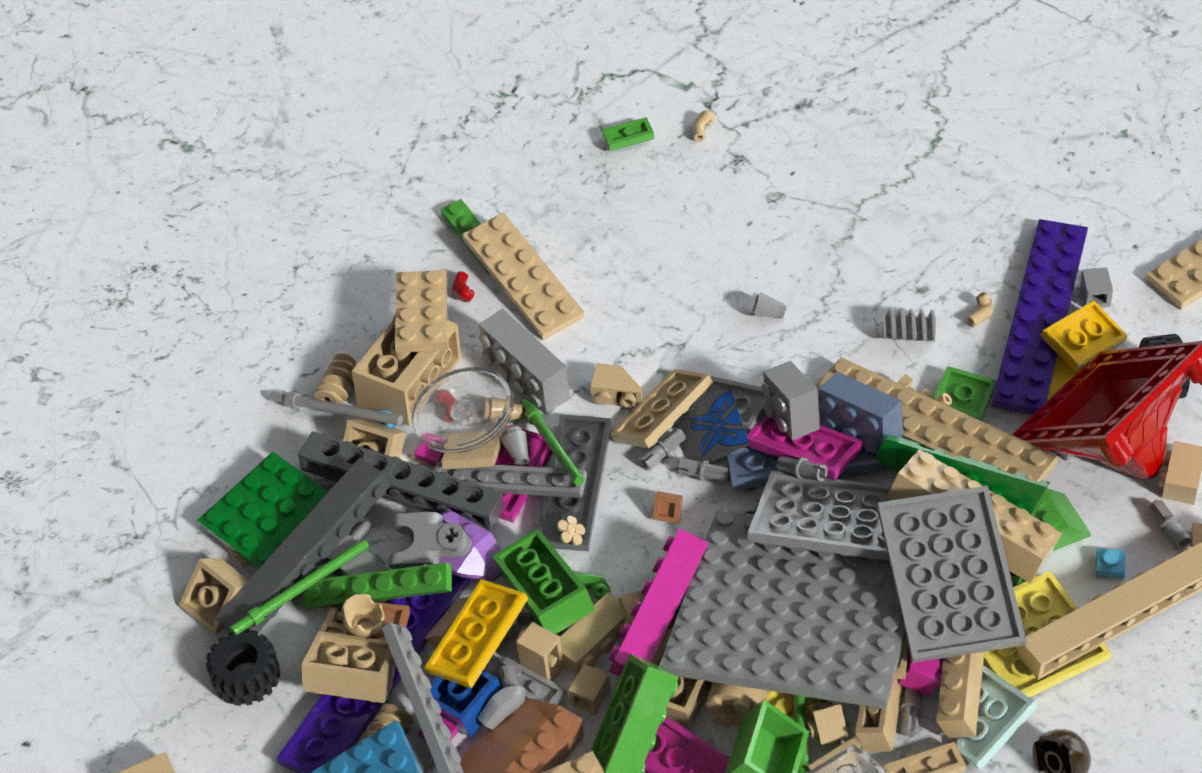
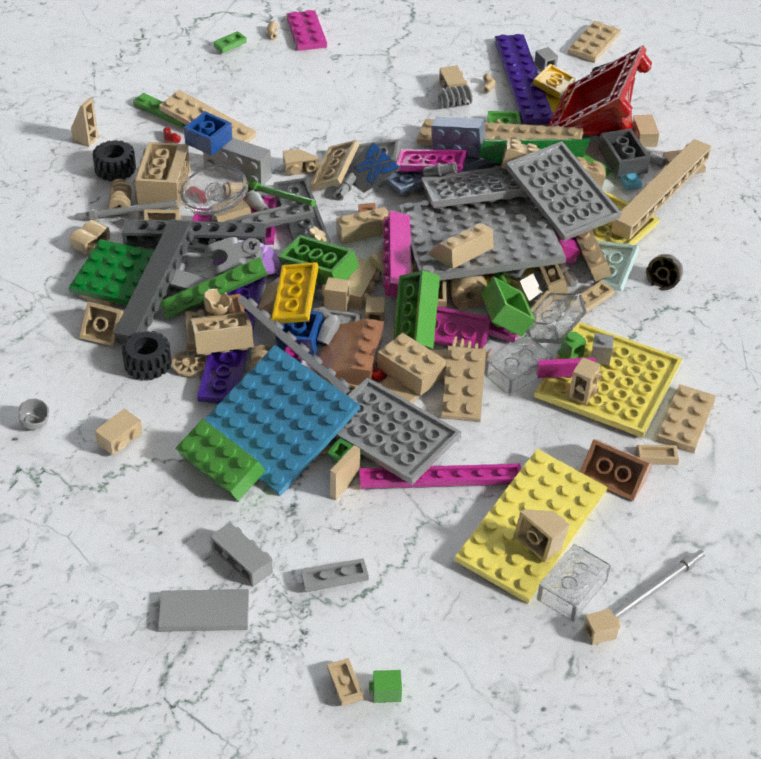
camera: 30 degrees left, 5 degrees down
(58, 717) = (33, 414): none -> light grey hair
(257, 615) = (144, 320): bright green bar -> none
(270, 435) = (88, 237): none -> tan brick
(295, 695) = (188, 363): none -> tan wheel
(346, 244) = (84, 126): none -> tan slope
(357, 300) = (114, 160): none -> black tyre
(421, 311) = (162, 141): tan plate -> none
(483, 318) = (208, 133): none -> blue brick
(644, 528) = (360, 225): none -> tan brick
(703, 470) = (377, 190): light grey axle -> none
(743, 635) = (464, 246): none -> tan slope
(754, 136) = (306, 30): none -> dark pink plate
(766, 306) = (365, 106): light grey cone -> none
(791, 400) = (416, 136): light grey brick -> none
(924, 290) = (451, 76): none -> tan brick
(1120, 509) = (624, 152): none -> dark grey brick

